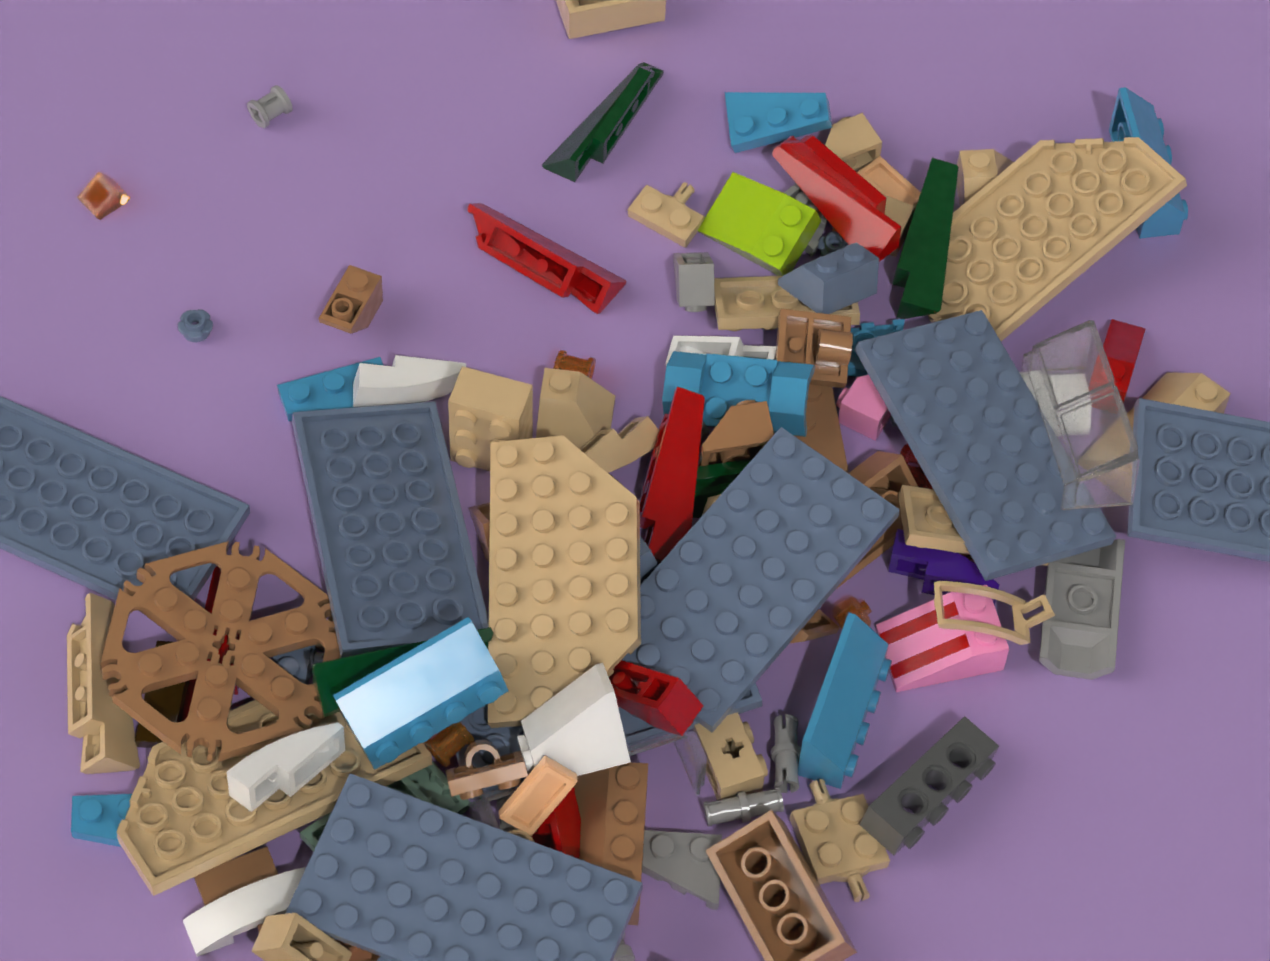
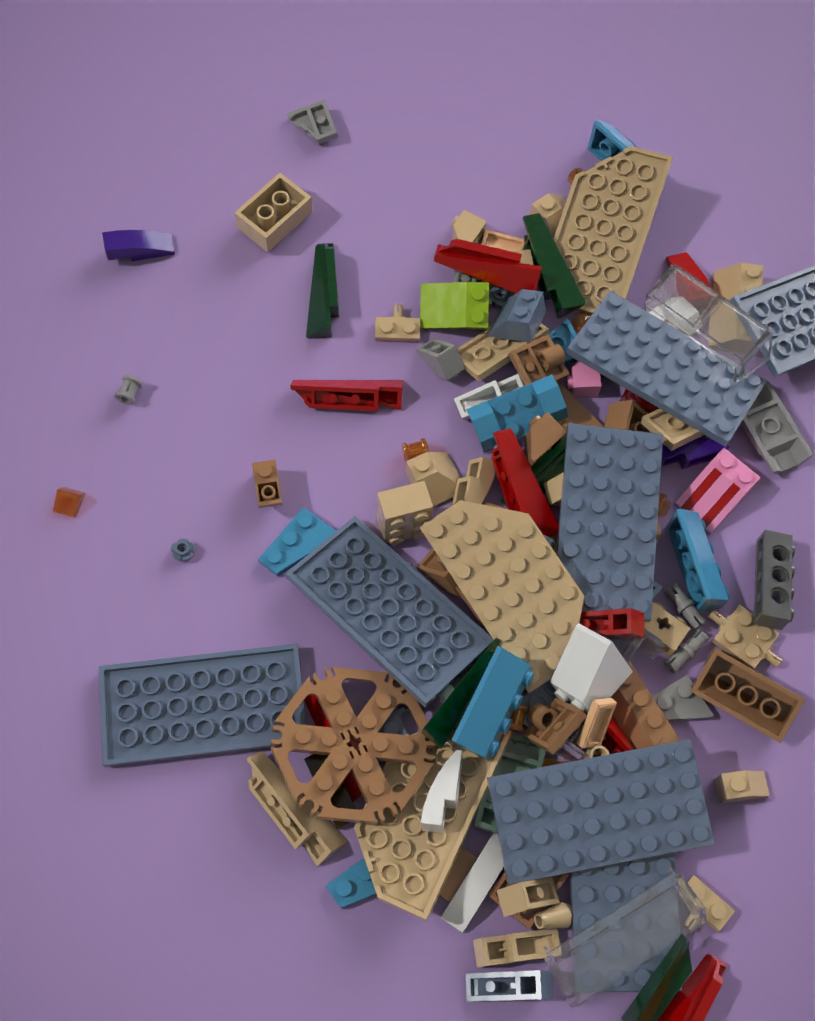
camera: 35 degrees left, 10 degrees up
(404, 382) = (331, 516): white slope -> none
(772, 117) = (416, 238): dark azure wing -> none
(1019, 606) = (754, 458): tan sword -> none

